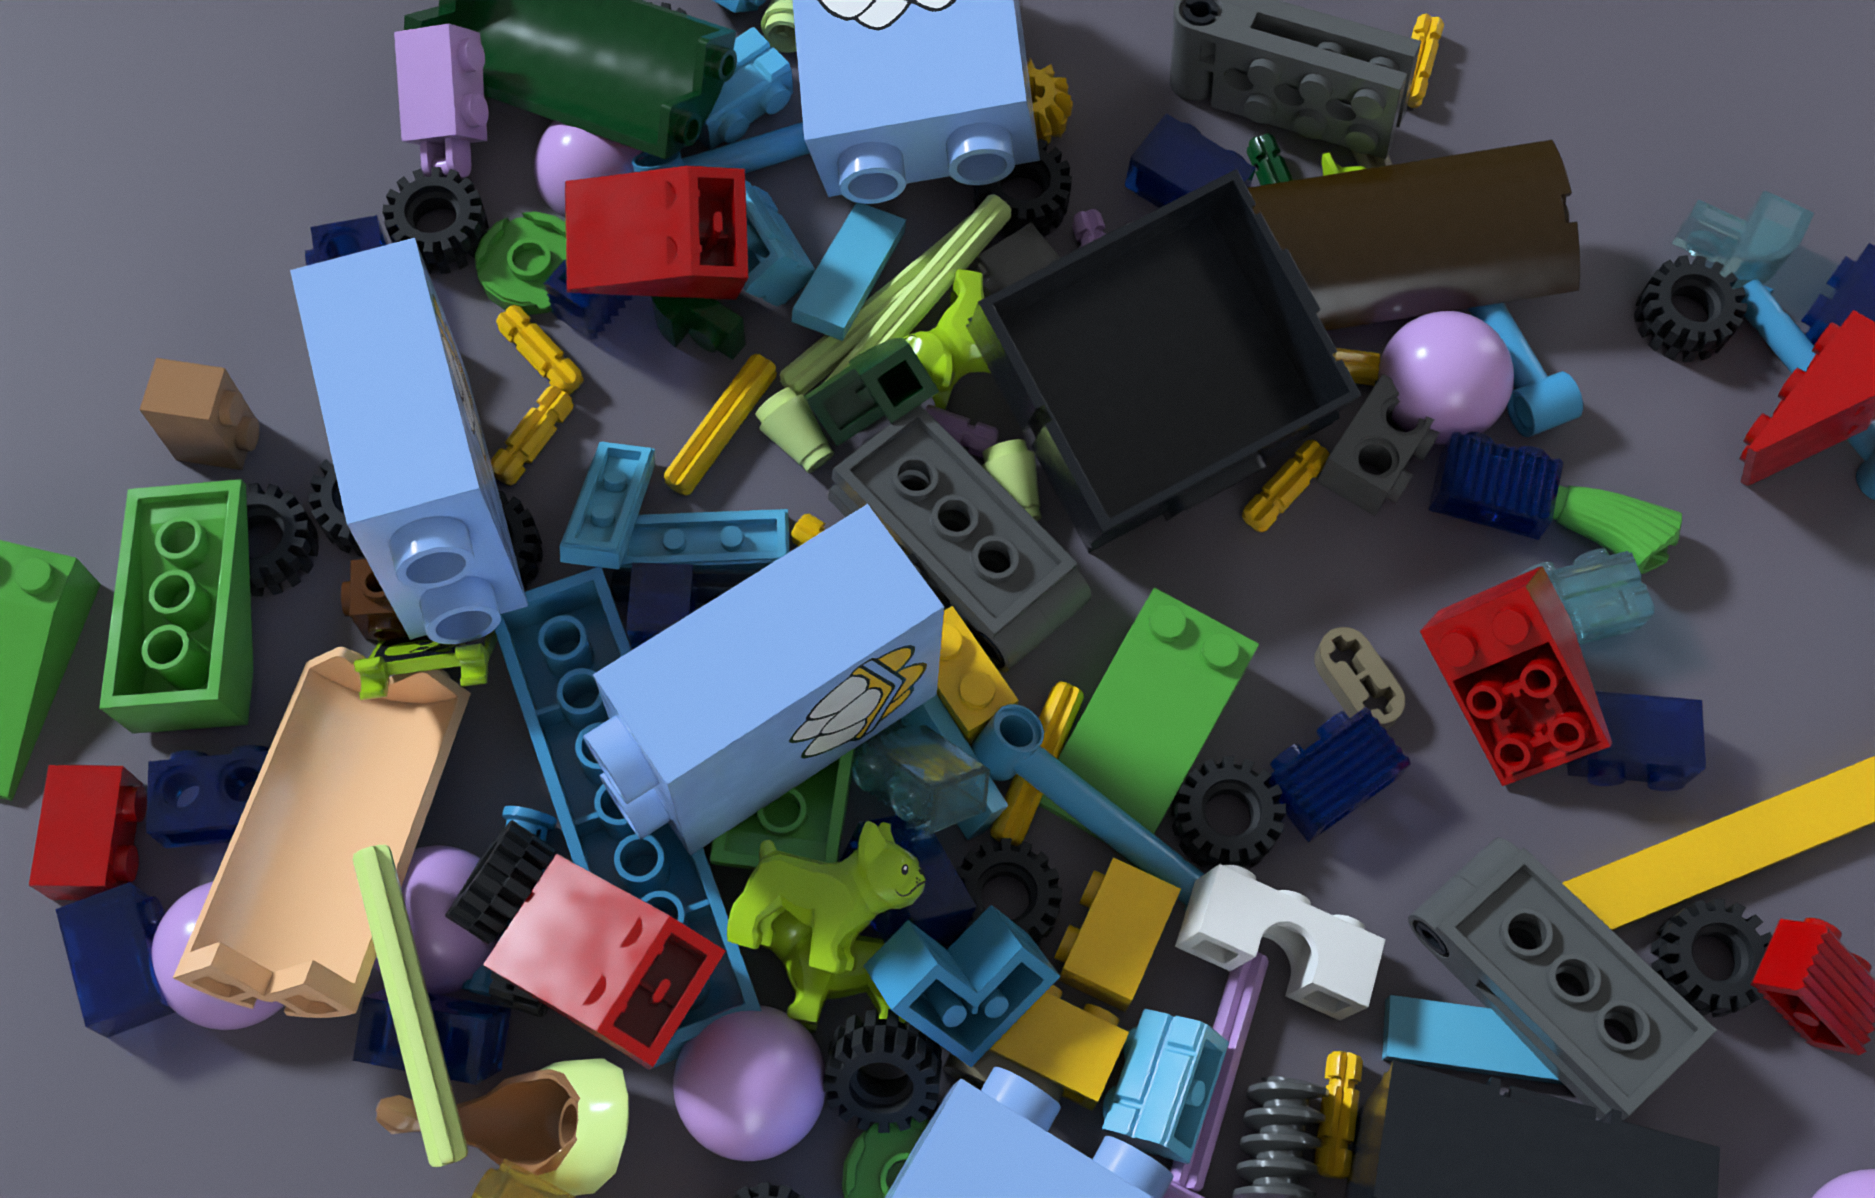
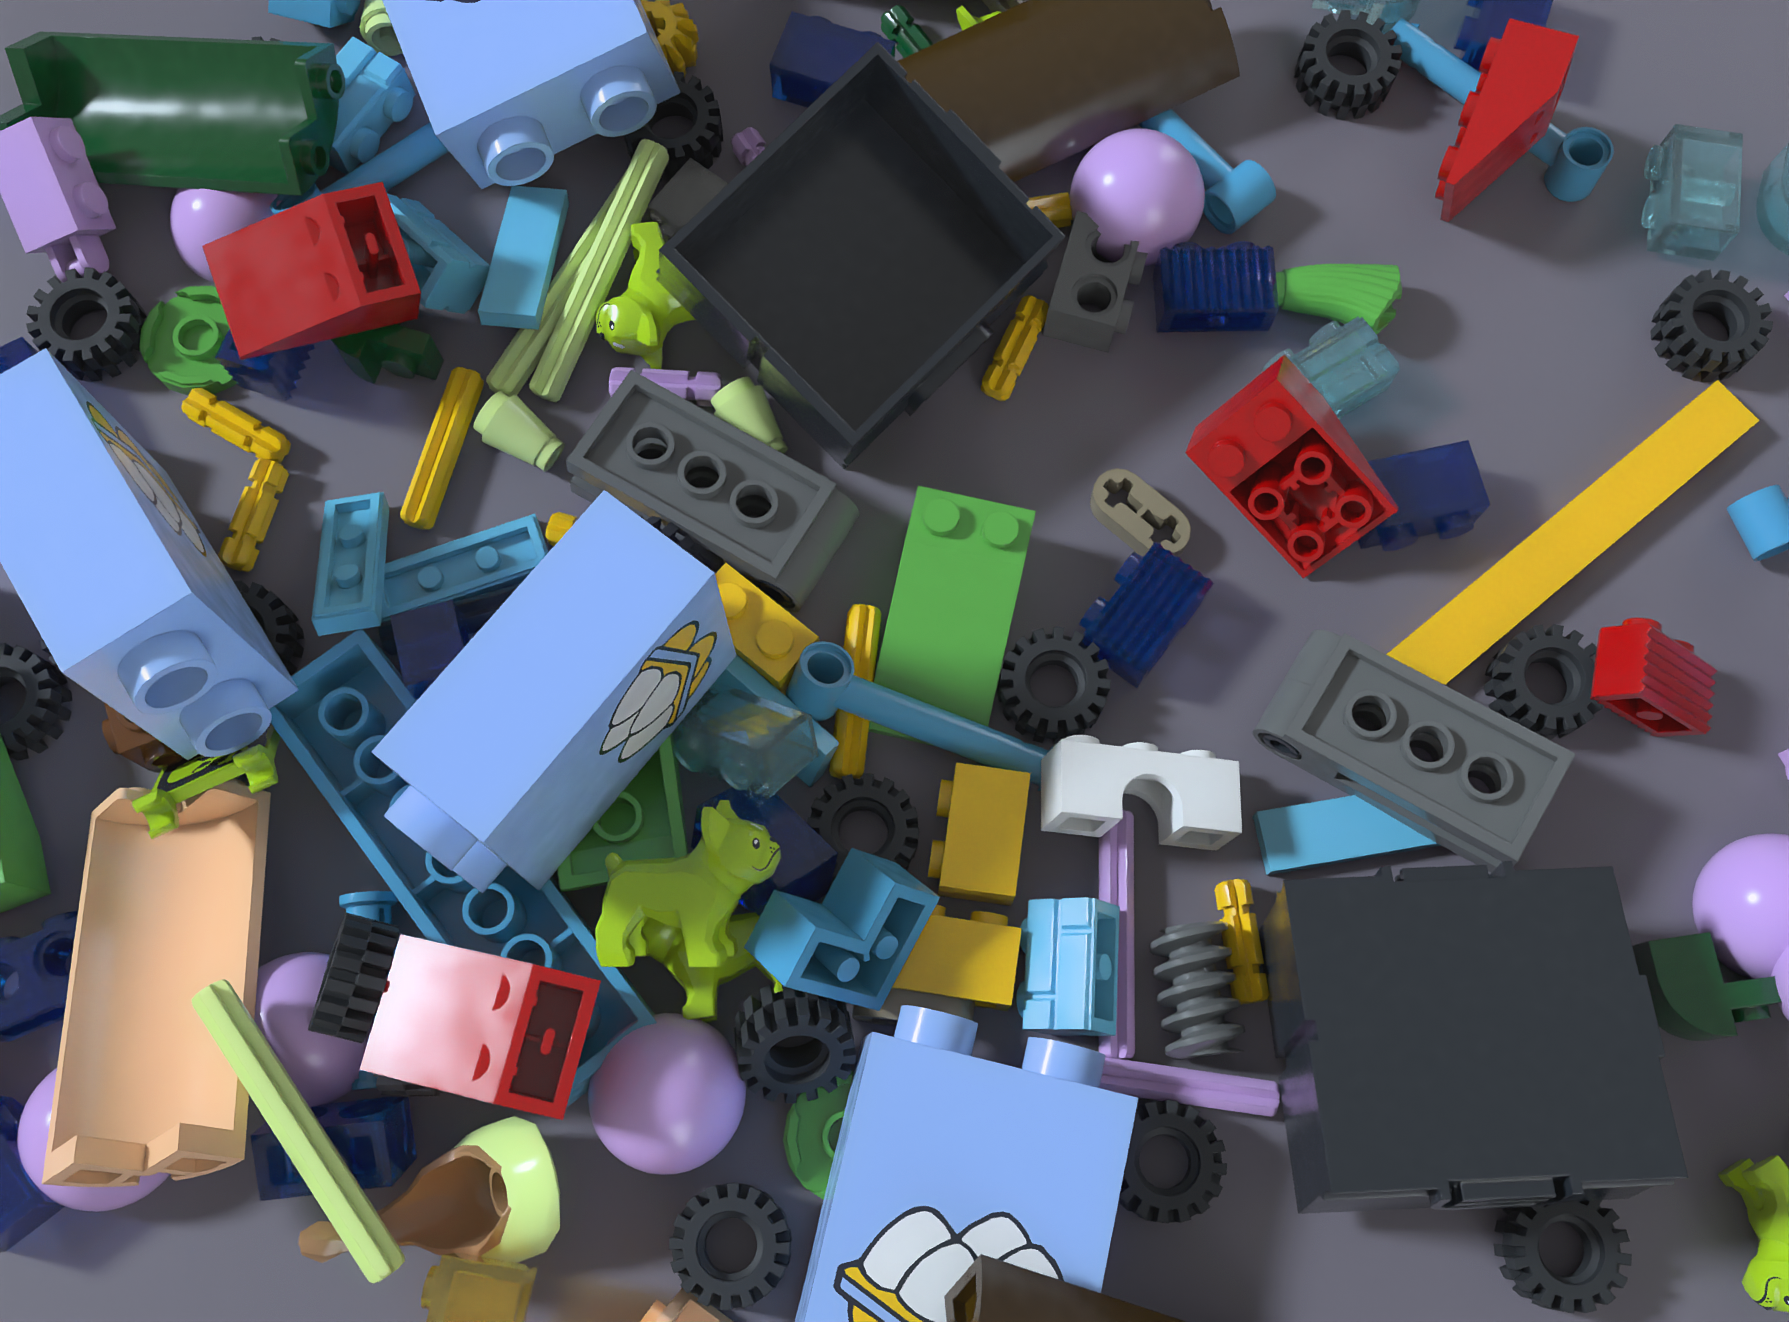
camera: 15 degrees left, 5 degrees up
(876, 384) = (584, 363): dark green brick -> none

